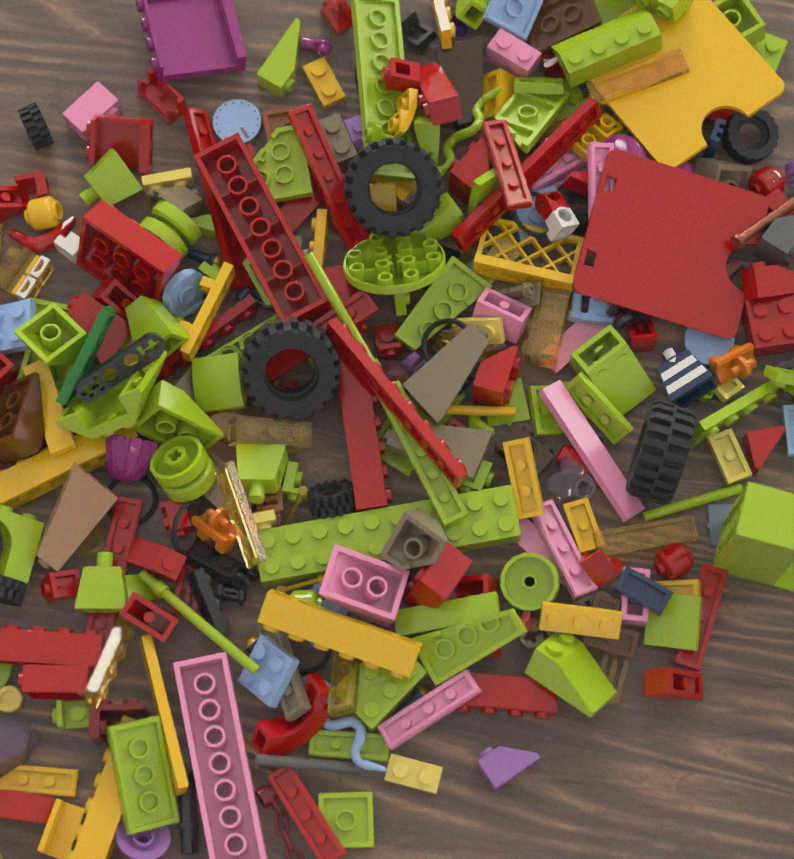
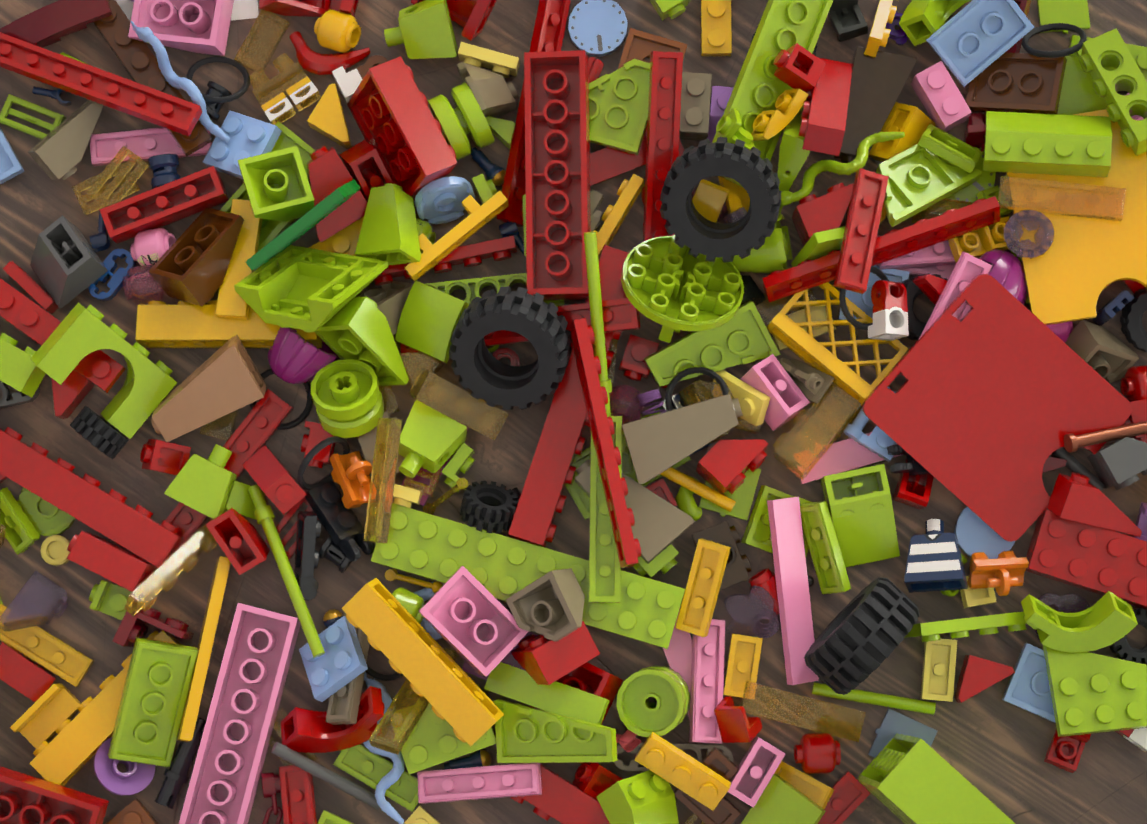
camera: 30 degrees right, 10 degrees up
(68, 278) = (329, 118): none -> yellow slope
(117, 363) = (327, 254): black beam -> none
(514, 663) = (594, 778): none -> red bracket
(624, 102) = (1030, 220): none -> gear
(643, 591) = (765, 774): dark blue tile -> none

